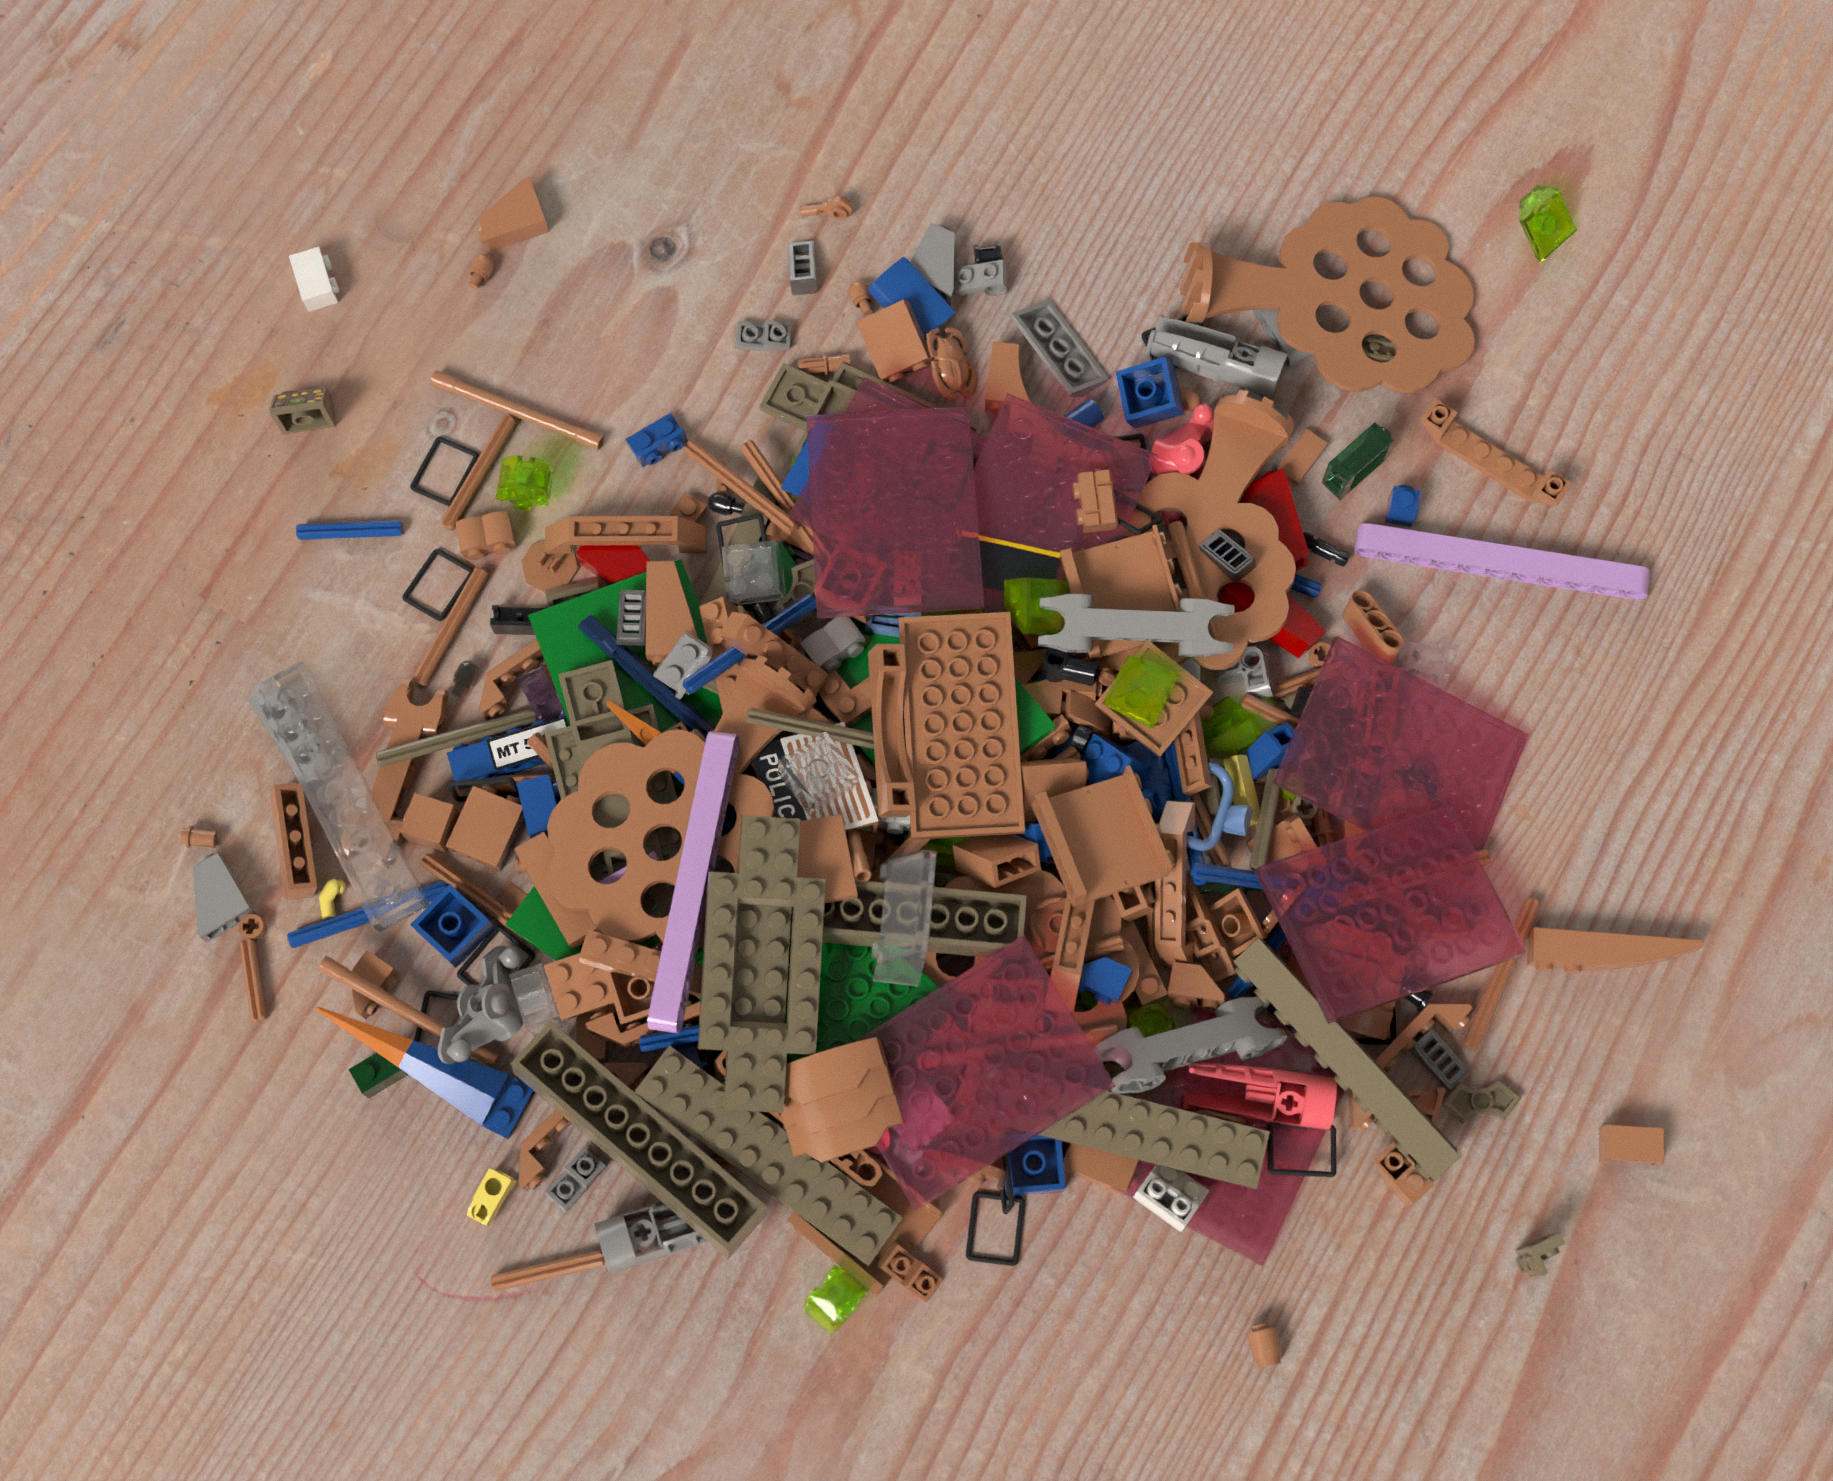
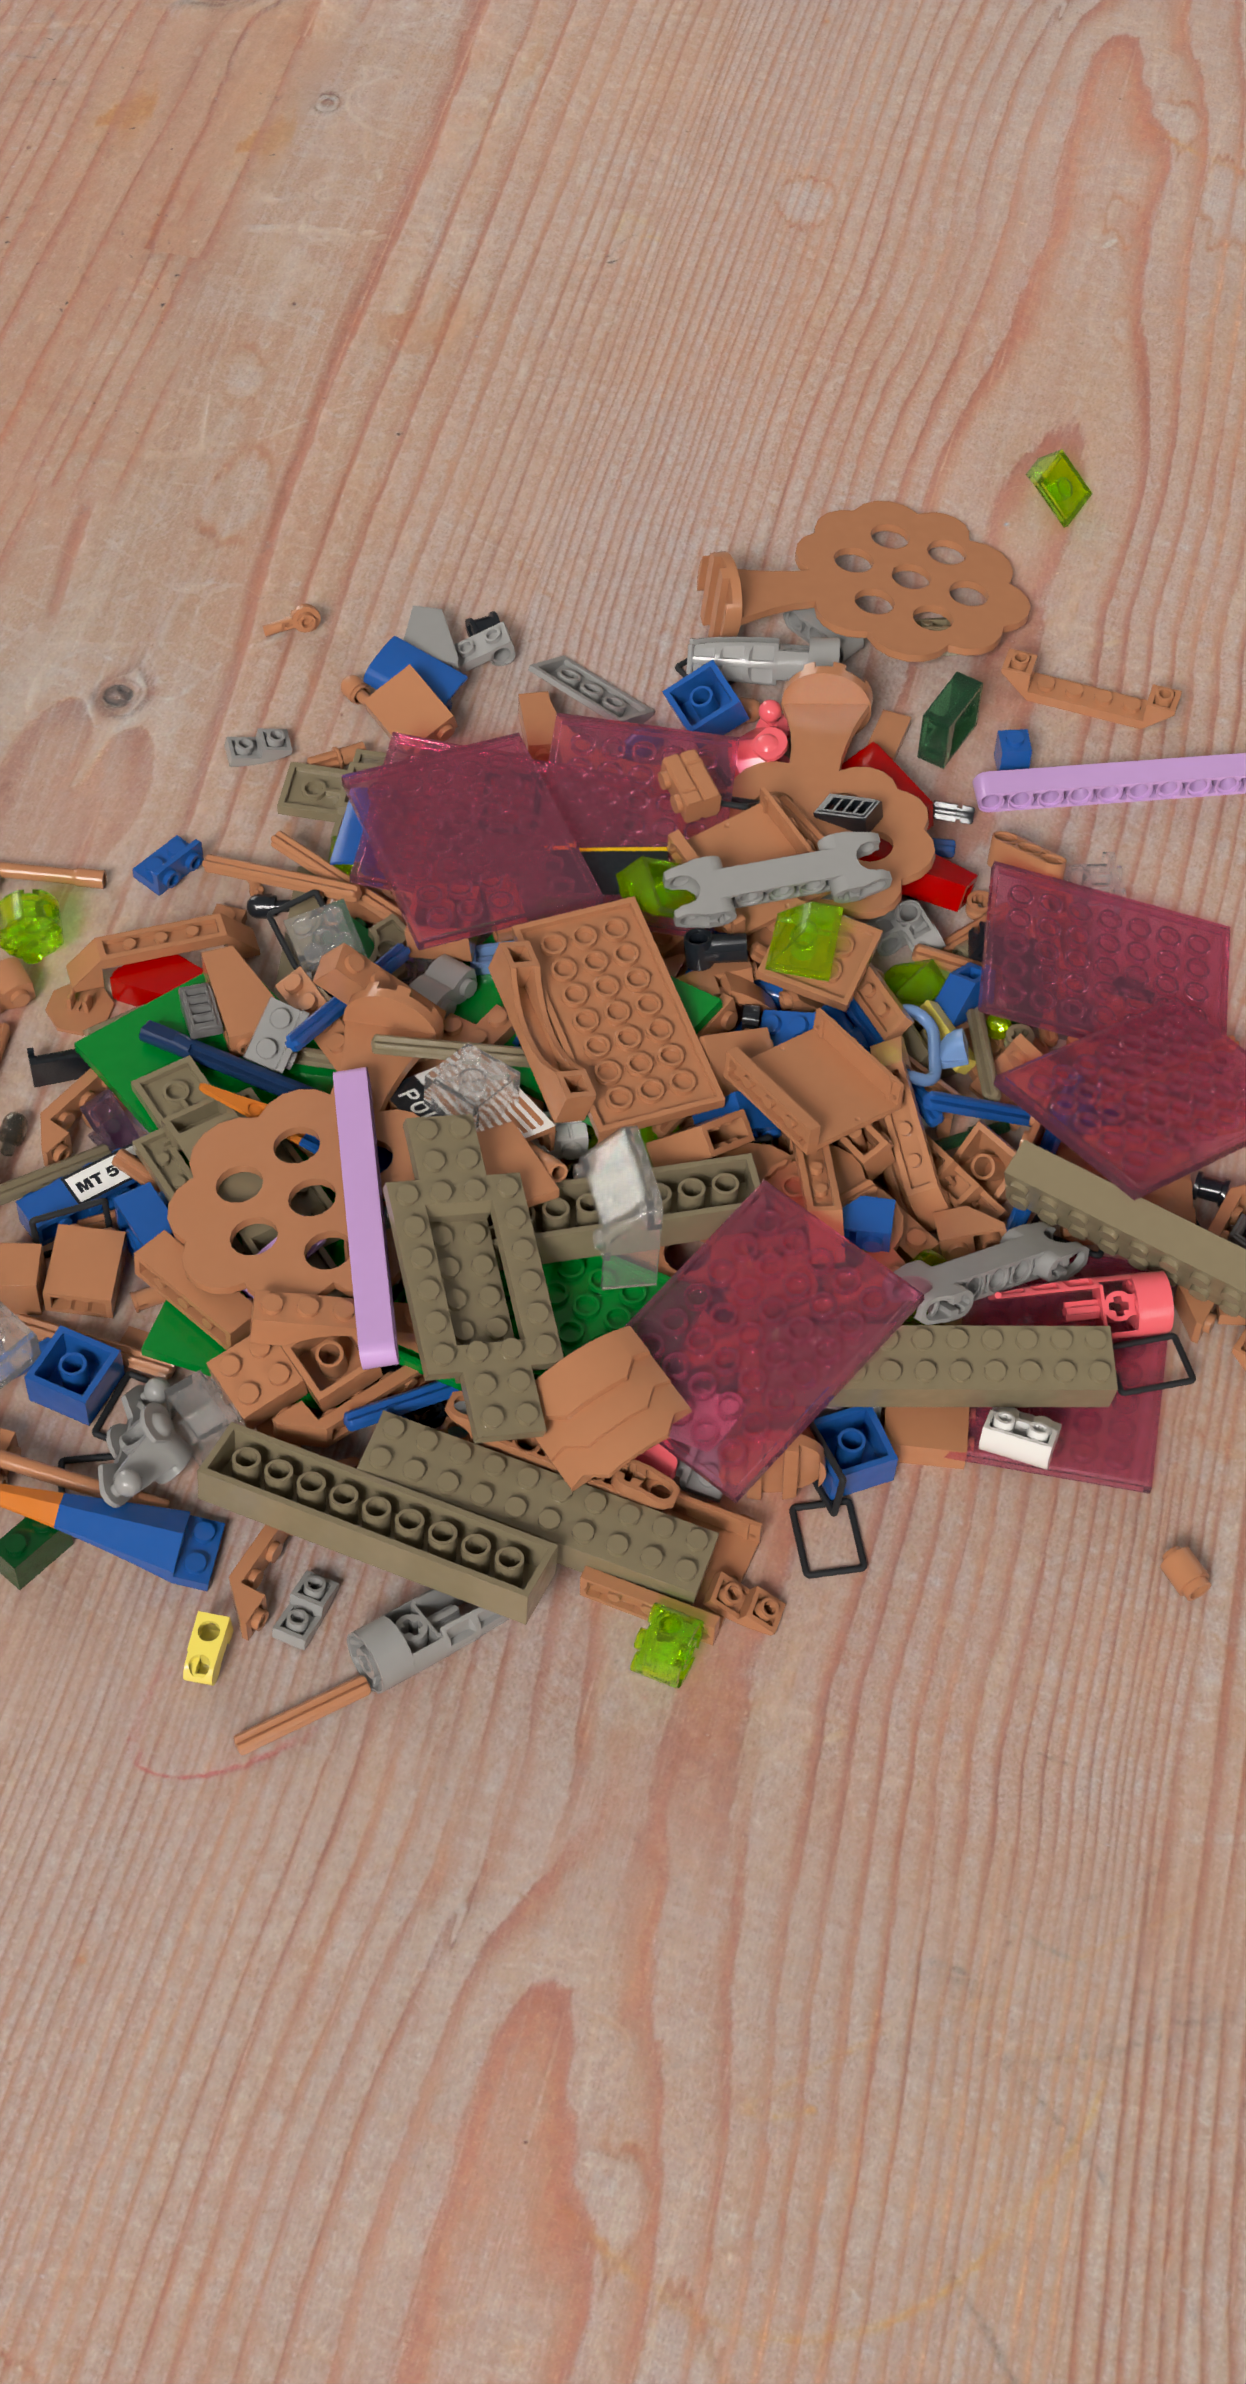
camera: 20 degrees left, 20 degrees down
(806, 282) = (283, 683): flat silver slope -> none
(950, 365) = (475, 718): nougat shield -> none

